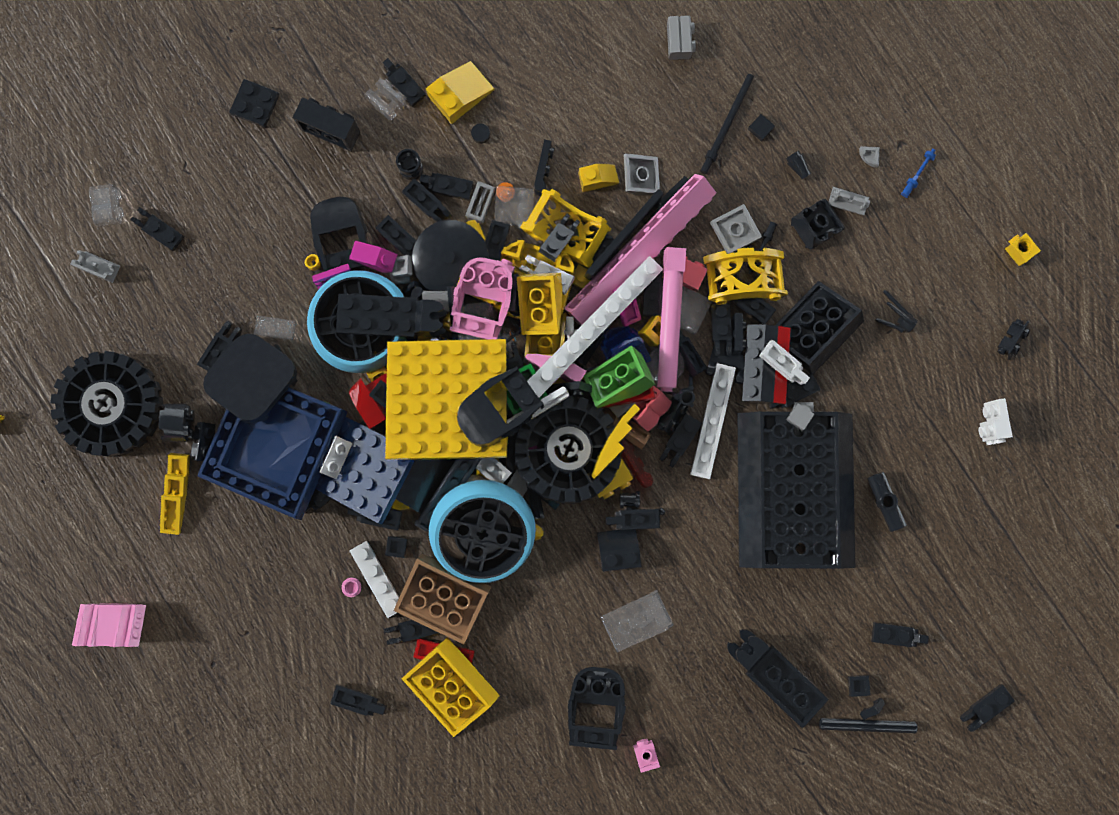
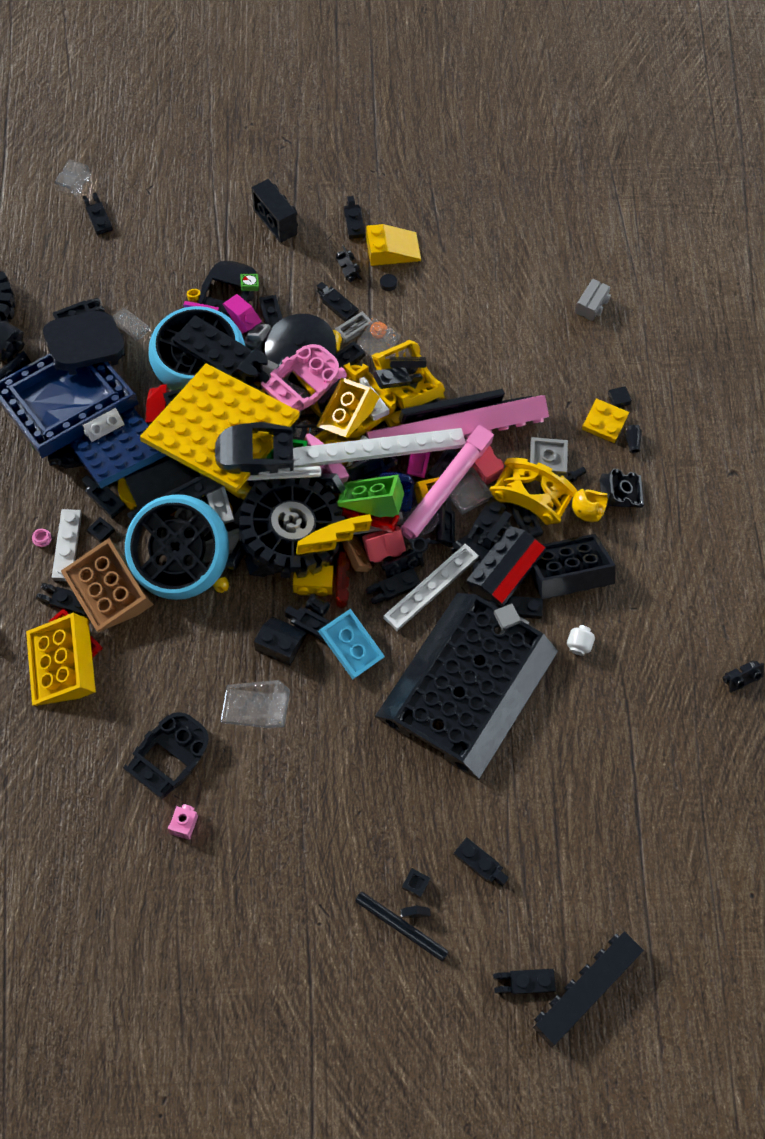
camera: 30 degrees right, 20 degrees down
(96, 266) = (33, 212): light grey hinge -> none
(254, 103) = (232, 174): black plate -> none
(357, 219) = (249, 282): none -> tile
(385, 88) = (337, 214): clear brick -> none
(409, 164) = (317, 269): black wheel -> none
(424, 200) = (310, 299): black hinge -> none
(427, 133) = (346, 259): none -> black hinge
(543, 167) = (421, 327): black plate -> none
(560, 217) = (408, 362): none -> black tile
(597, 176) = (459, 357): yellow slope -> none
(641, 174) = (496, 374): light grey slope -> none
(682, 519) = (351, 644): none -> medium azure plate
(712, 155) = (565, 393): black bar -> none
(762, 160) = (605, 420): none -> yellow plate
(778, 678) = (346, 828): black hinge -> none
(784, 363) = (520, 567): white hinge -> none
(801, 259) = (589, 505): none -> yellow piece
(849, 201) = (659, 488): light grey hinge -> none
(866, 392) = (580, 640): none -> white head
(870, 155) = (700, 466): light grey tile -> none
(892, 513) = (541, 750): black piece -> none
(906, 320) = (652, 605): black plant -> none
(912, 182) = (725, 504): blue piece -> none
(997, 424) = (681, 730): white plate -> none
(1038, 684) = (587, 989): none -> black brick

